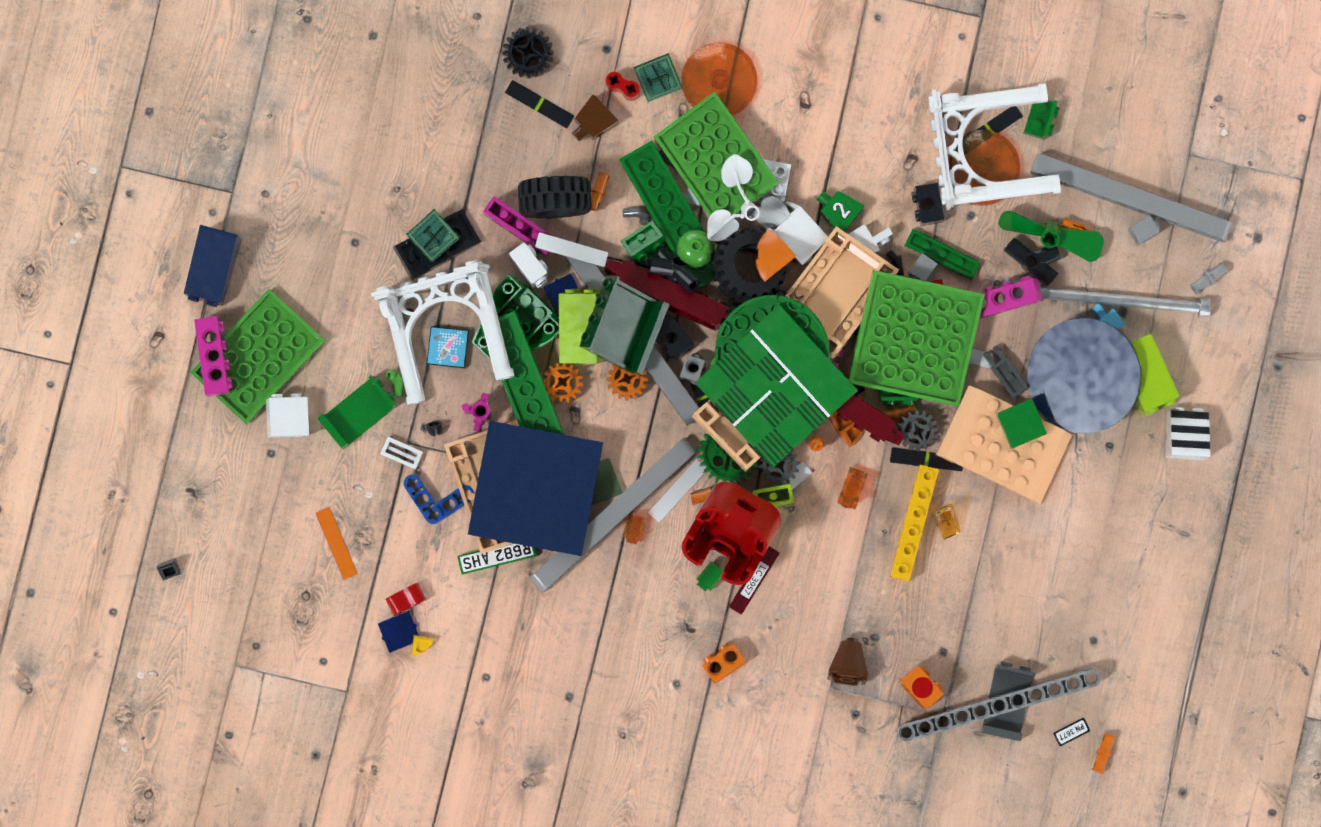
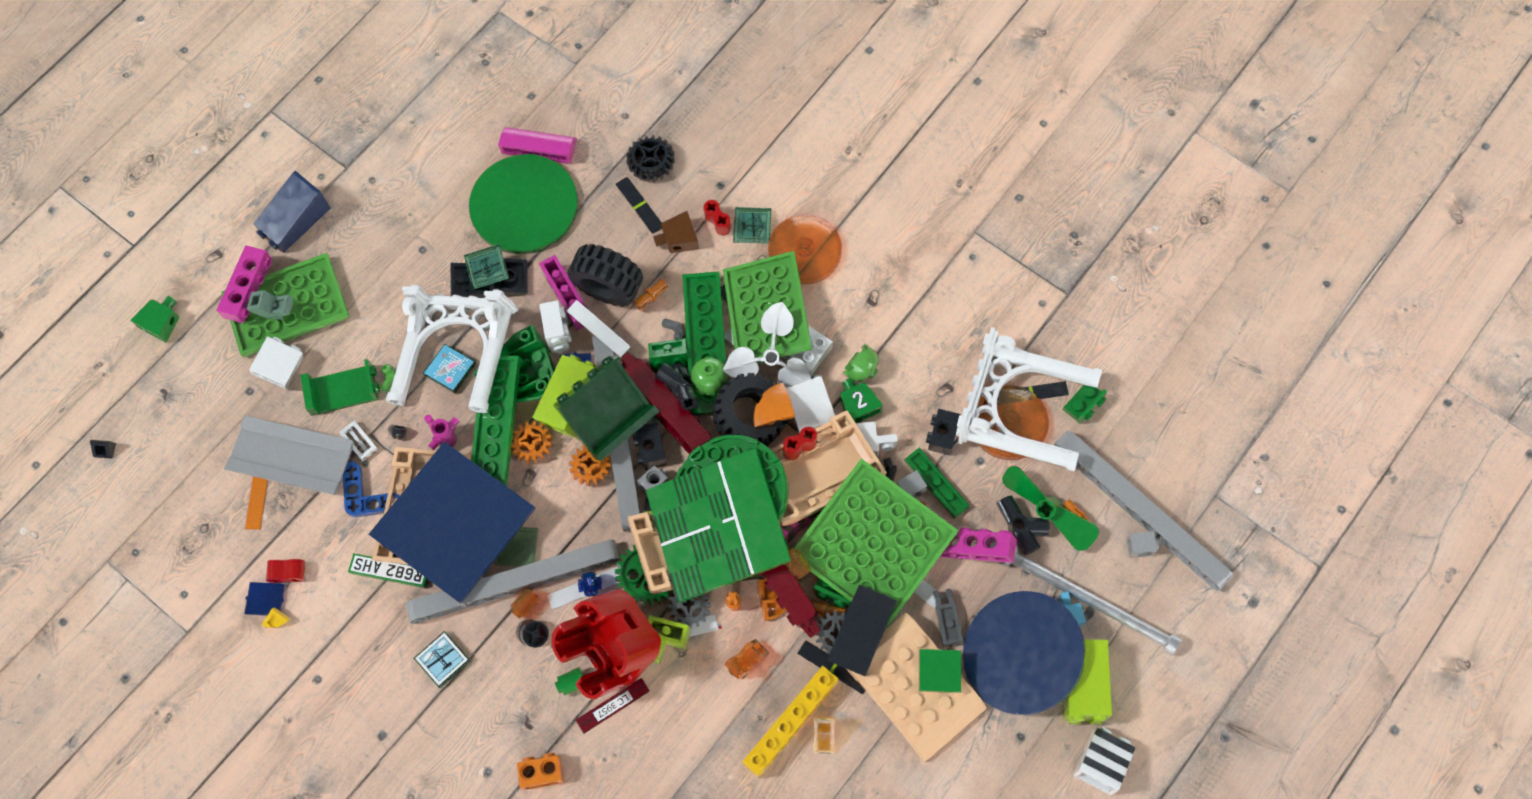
camera: 35 degrees right, 15 degrees down
(144, 425) = (157, 318): none -> green torso
(252, 366) = (269, 306): none -> sand green brick
(351, 496) = (290, 455): none -> light grey hinge
(409, 85) = (549, 145): none -> dark pink brick
(428, 153) = (523, 203): none -> green tile
(587, 610) = (442, 659): none -> tile
(656, 552) = (532, 633): none -> black wheel
(683, 486) = (589, 584): none -> clear blue gear
(811, 278) = (795, 445): none -> red axle
(826, 174) = (862, 365): none -> bright green cylinder
(864, 388) = (799, 565): none -> clear orange brick
(941, 419) = (862, 630): none -> black slope
(1208, 278) = (1188, 618): light grey pin -> none

